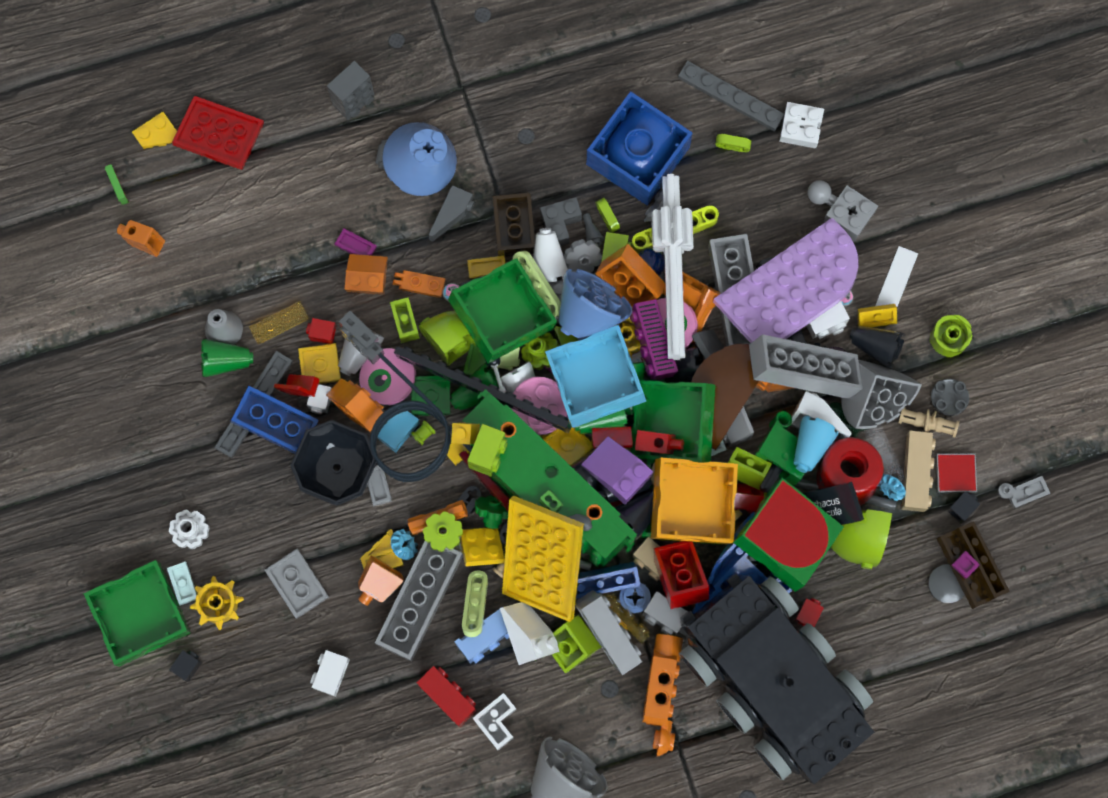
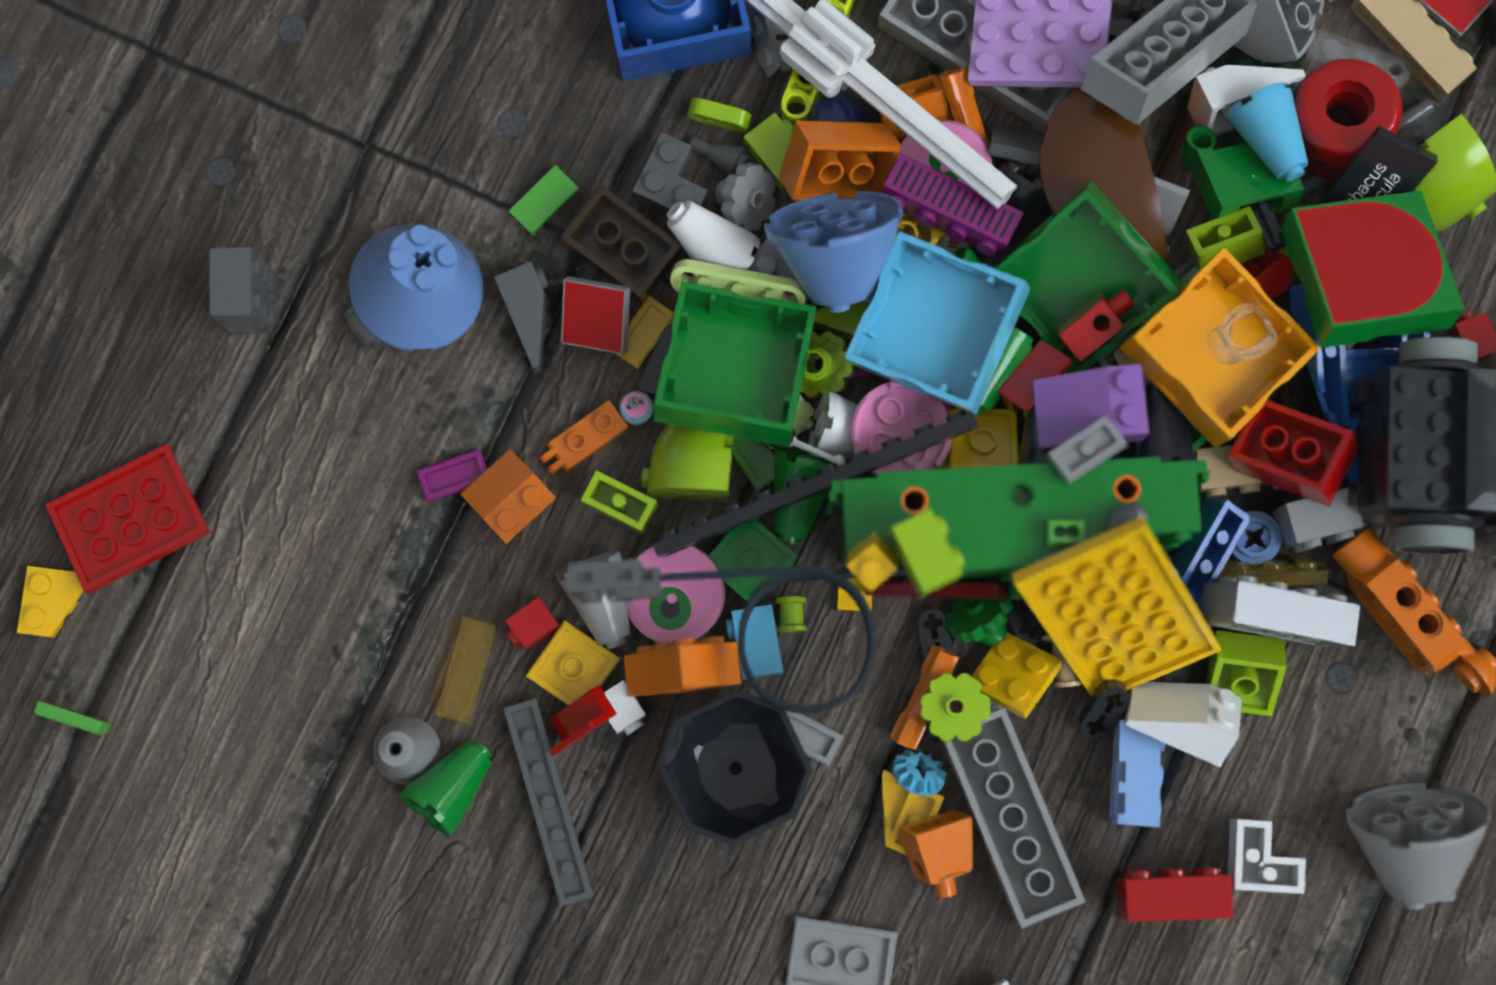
camera: 45 degrees left, 5 degrees up
(141, 237) = (178, 749): orange torso -> none
(272, 419) = (598, 796): blue brick -> none
(474, 240) = (595, 315): none -> red tile
(475, 603) = (1086, 751): yellowish green plate -> none
(502, 601) = (1107, 711): none -> black beam
(505, 177) = (544, 200): none -> bright green tile
(594, 480) = (1087, 450): none -> light grey plate
(696, 502) = (1222, 344): none -> clear piece
(892, 487) = (1418, 84): medium azure gear -> none

